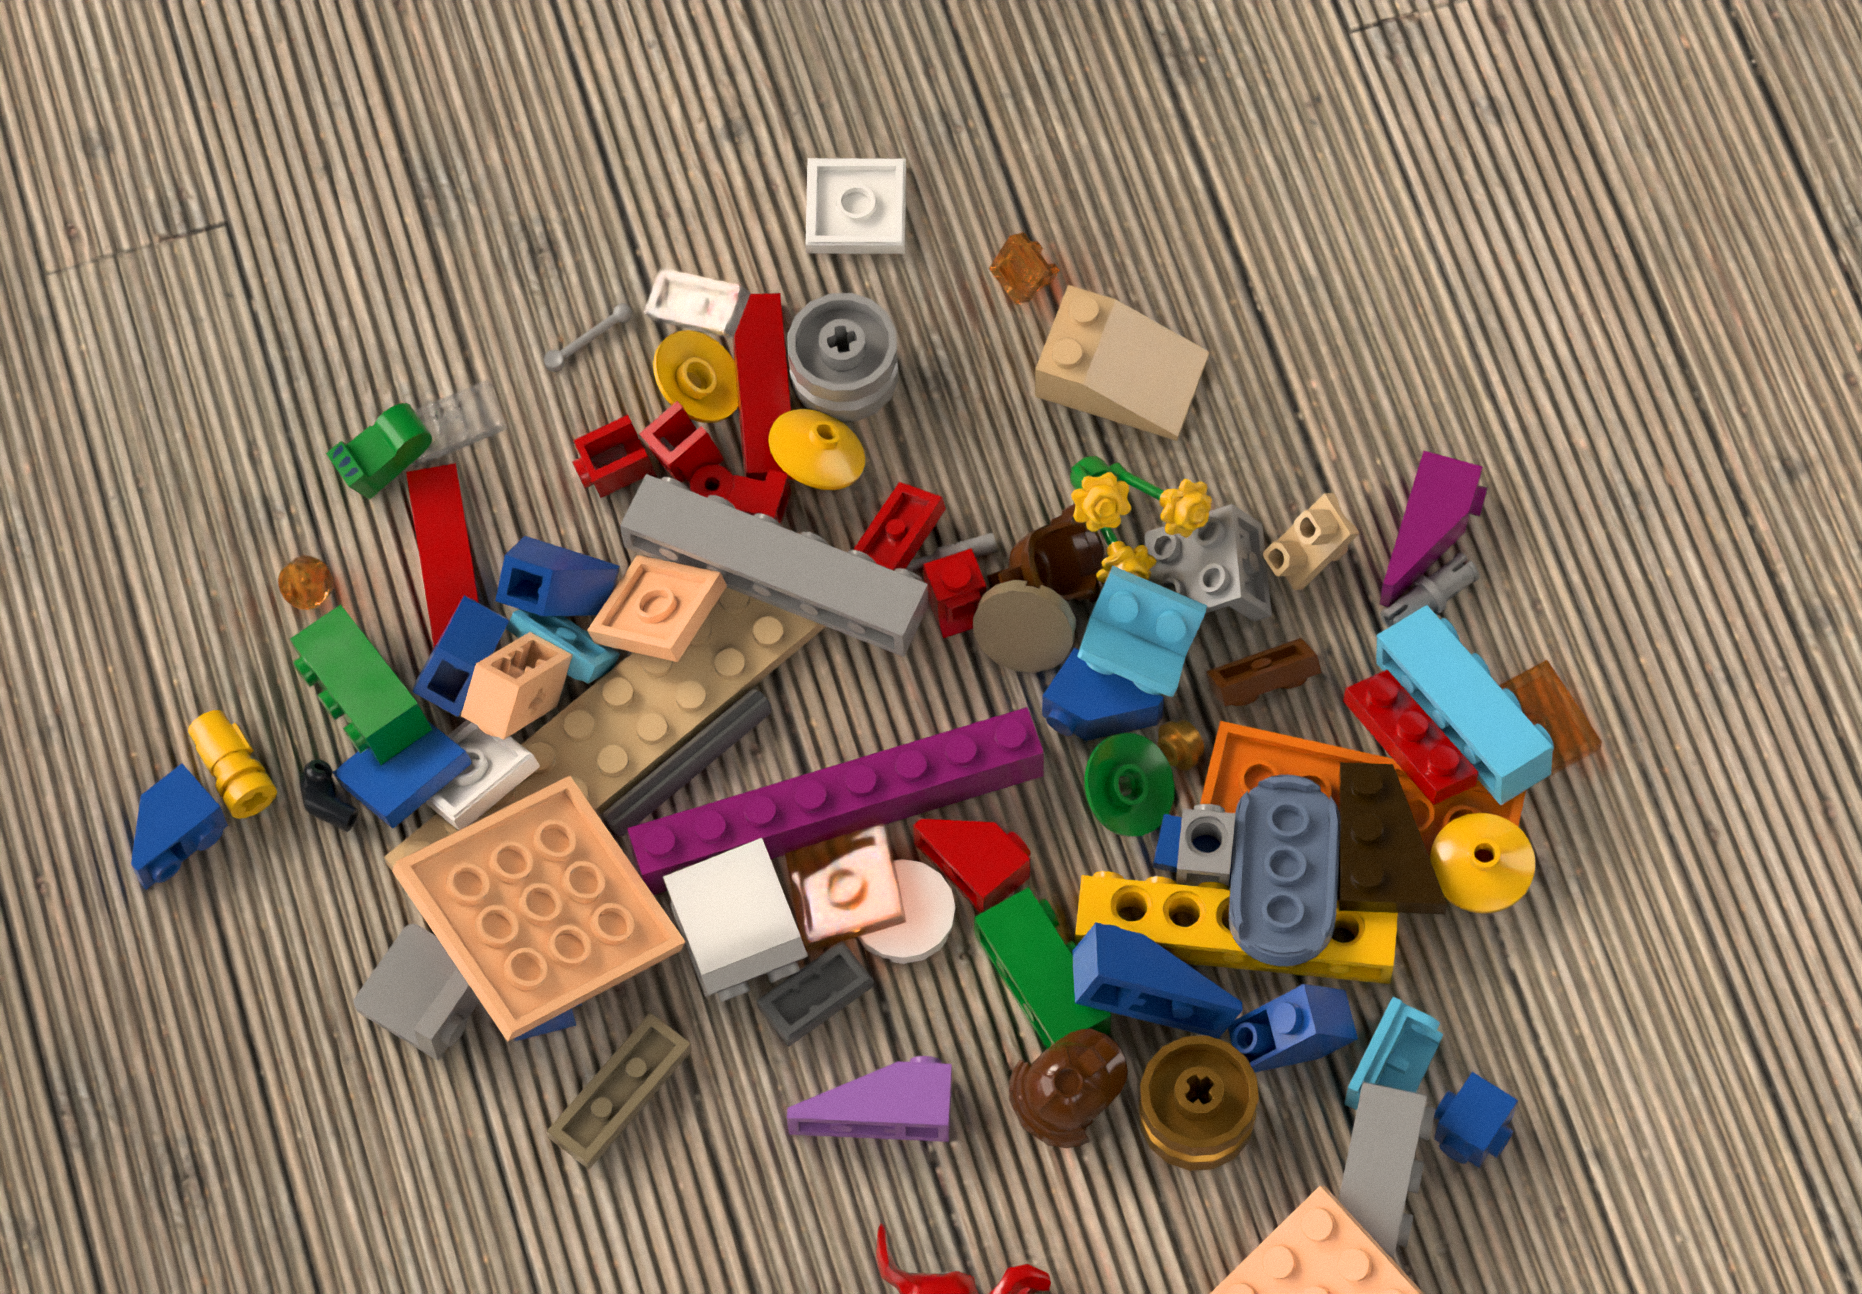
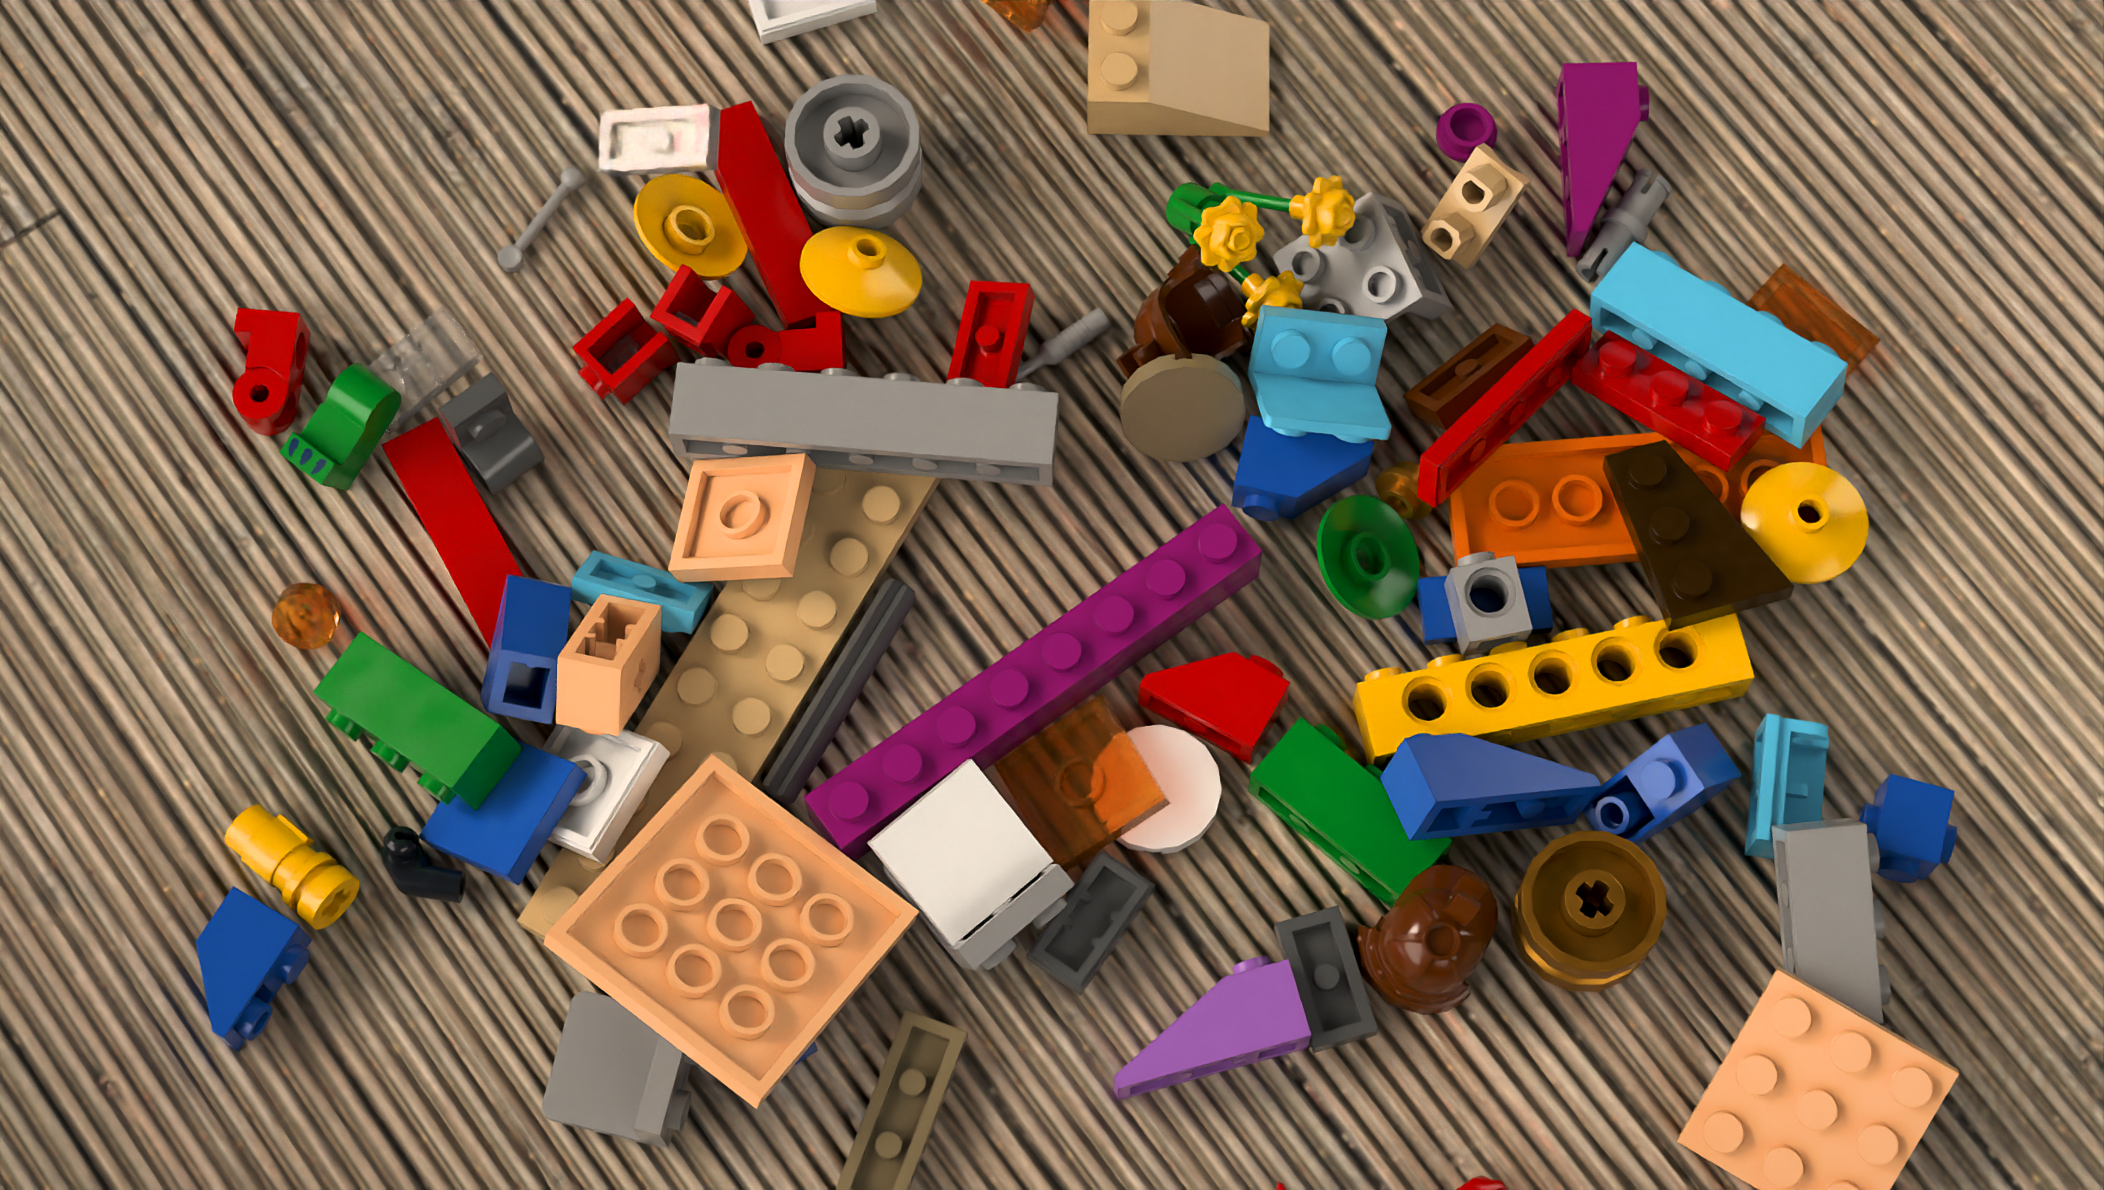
camera: 20 degrees left, 5 degrees up
(345, 390) = (274, 368): none -> red leg
(488, 487) = (490, 434): none -> dark grey plate
(554, 580) = (608, 522): blue slope -> none
(954, 591) = (1087, 390): red window -> none
(979, 1092) = (1327, 978): none -> dark grey plate
(1274, 702) = (1503, 409): none -> red tile
(1284, 871) = (1591, 605): sand blue tile -> none
(1333, 477) = (1464, 129): none -> magenta plate

